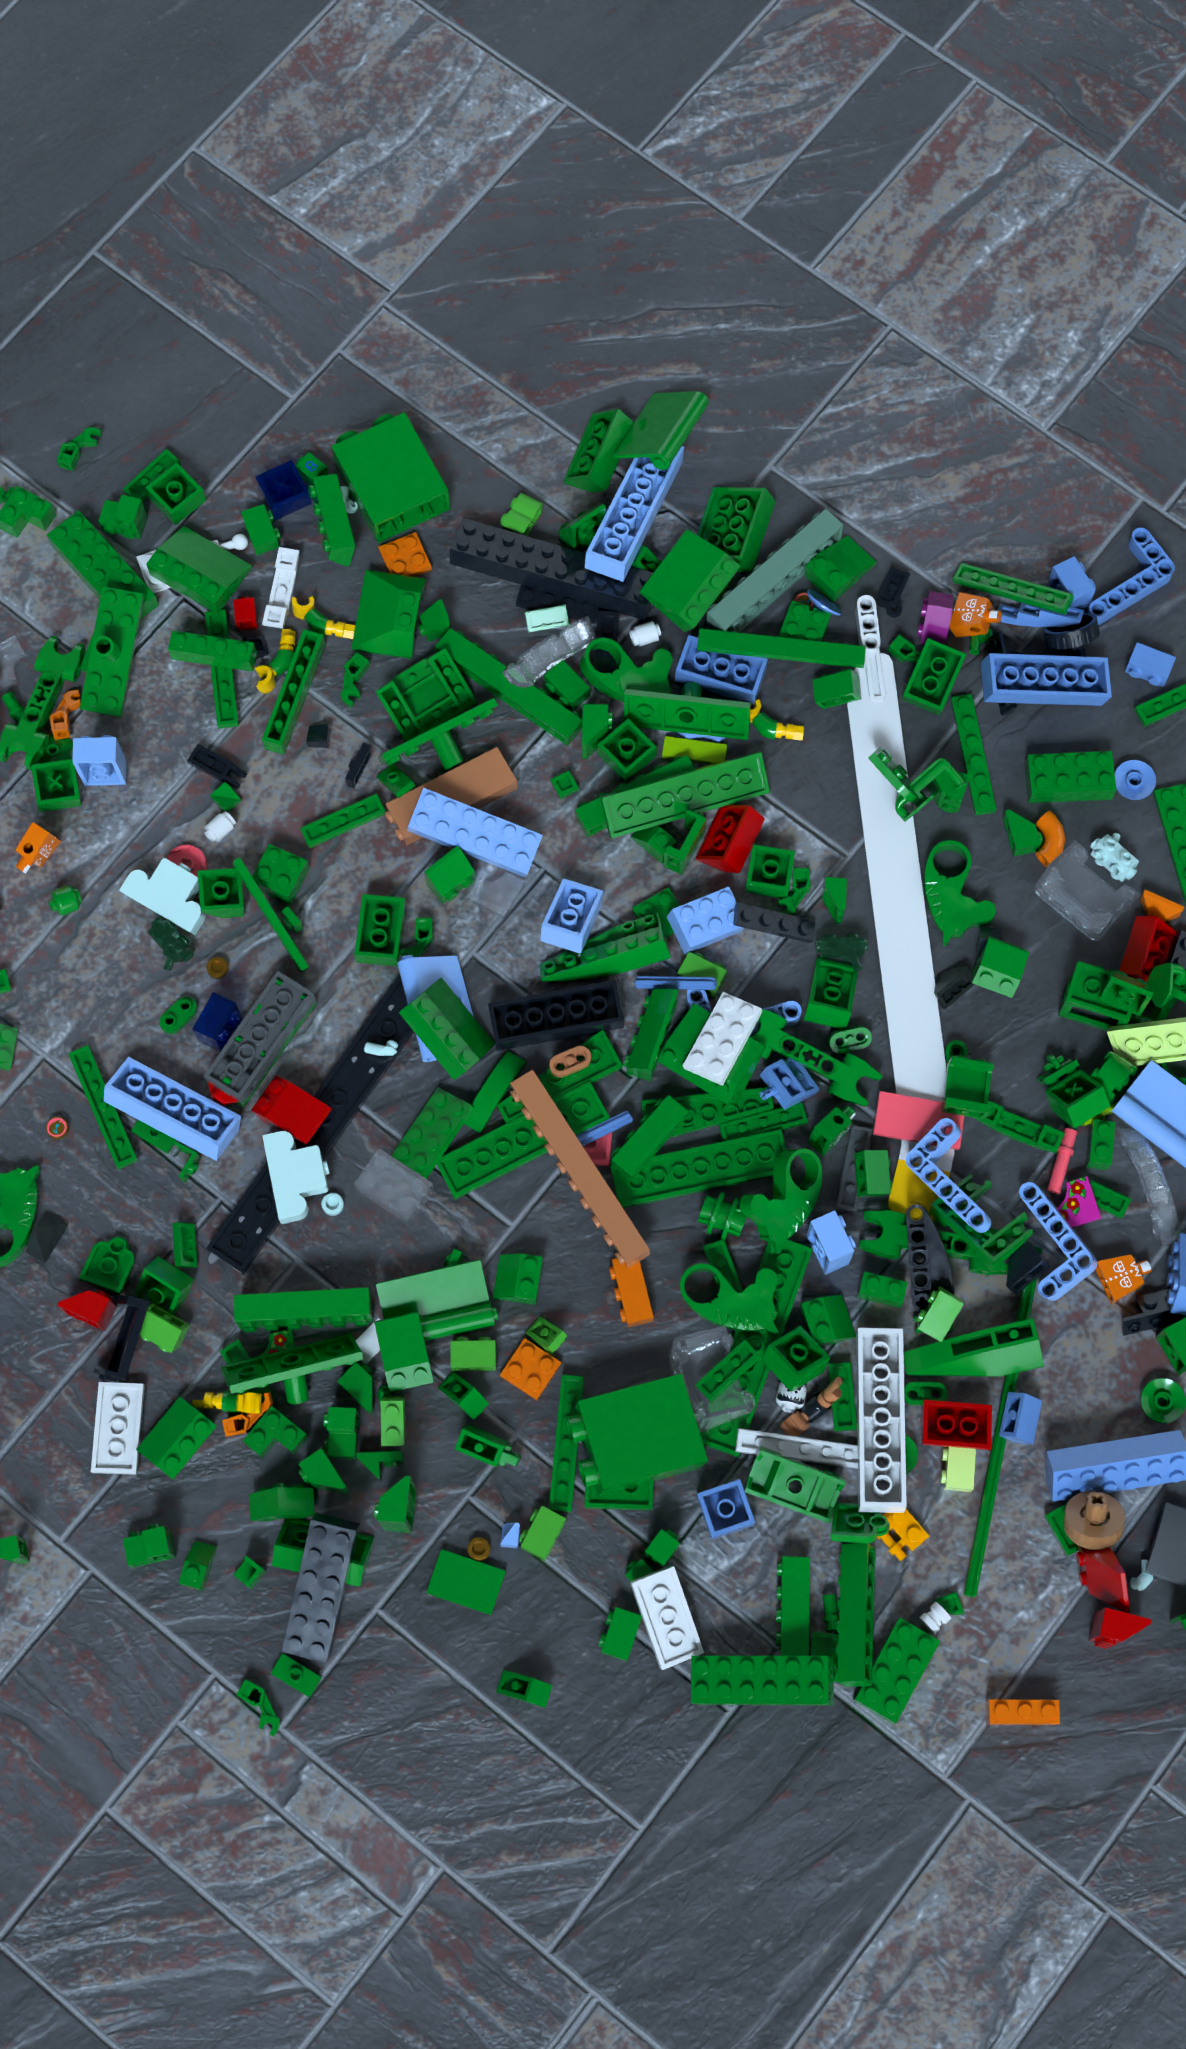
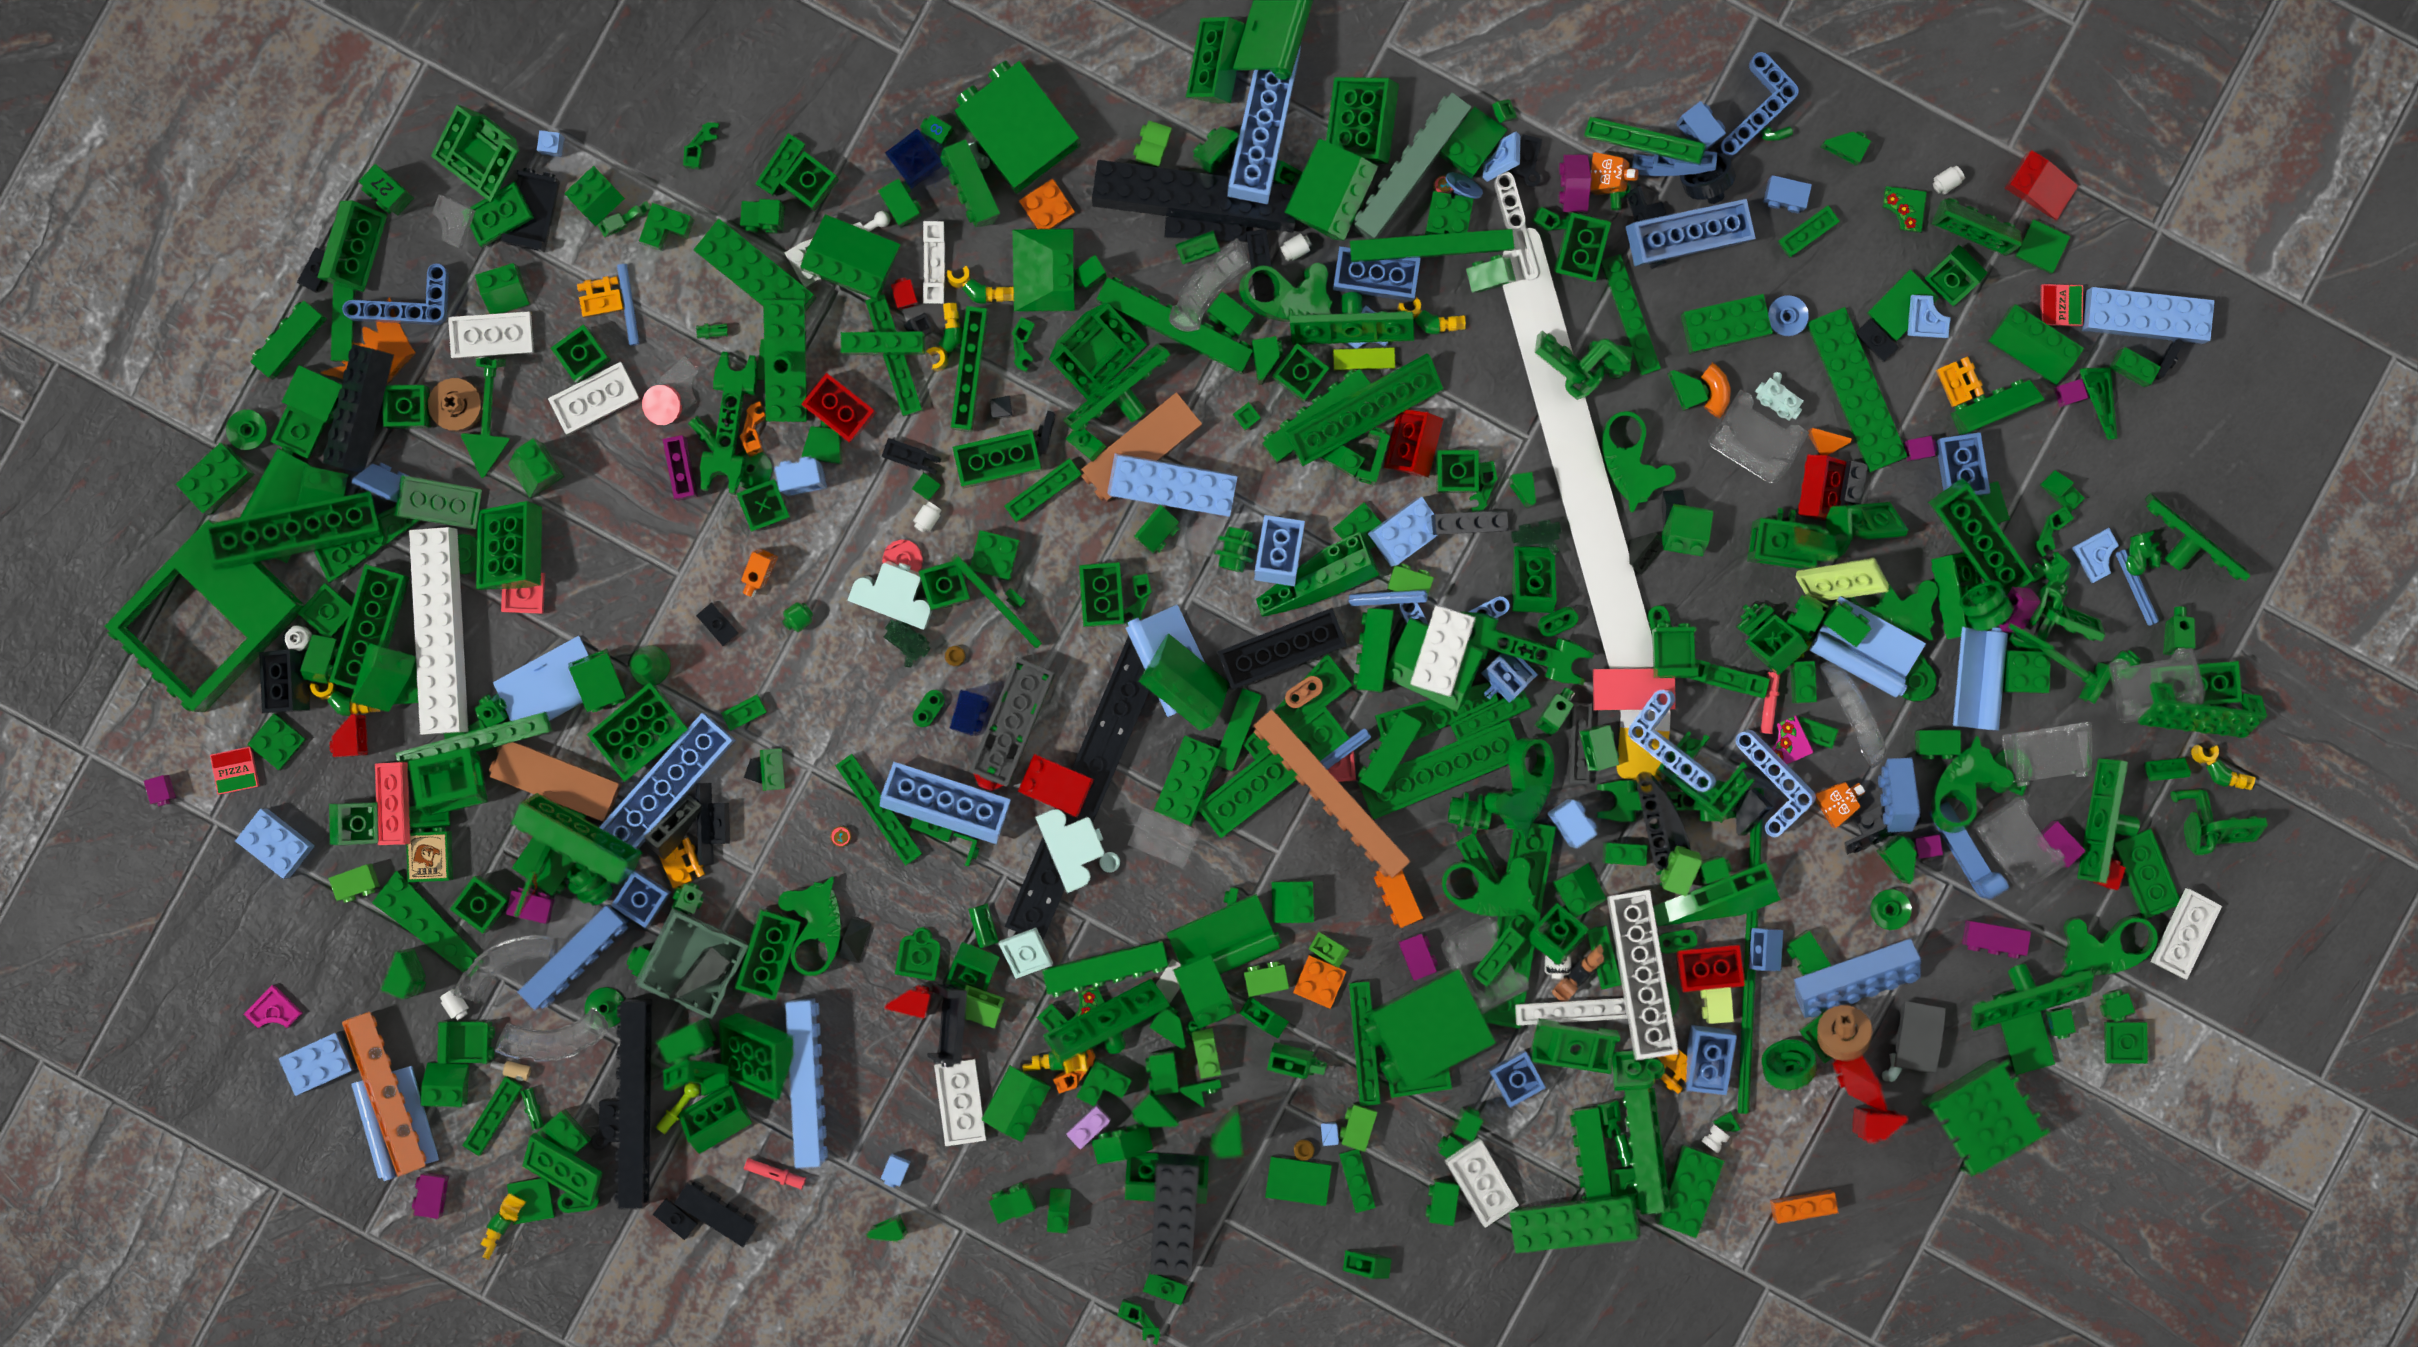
camera: 10 degrees left, 15 degrees up
(30, 1489) = (895, 1170): none -> light blue brick
(45, 616) = (711, 331): none -> green pin
(134, 737) = (823, 444): none -> green torso
(155, 705) = (839, 408): none -> red slope
(222, 1280) = (1025, 953): none -> light aqua tile
(249, 1478) = (1088, 1126): none -> lavender brick
(249, 1573) = (1105, 1208): green panel -> none
(302, 780) = (997, 458): none -> green brick
(381, 1050) = (1126, 713): light aqua arm -> none
(526, 911) = (1235, 549): none -> green piece
(530, 1593) = (1357, 1180): none -> green plate
(641, 1359) = (1417, 956): none -> magenta brick
(821, 1570) = (1609, 1116): none -> green plate
(868, 583) = (1505, 157): none -> light blue tile
(876, 542) = (1504, 111): none -> green plate
(940, 1527) = (1709, 1059): none -> medium blue slope
(975, 1319) = (1714, 869): none -> green brick
(1021, 1544) = (1780, 1065): none -> green piece
(1064, 1429) = (1807, 953): none -> green brick
(1150, 609) = (1778, 135): none -> green arm
(1155, 1087) = (1846, 623): none -> green brick

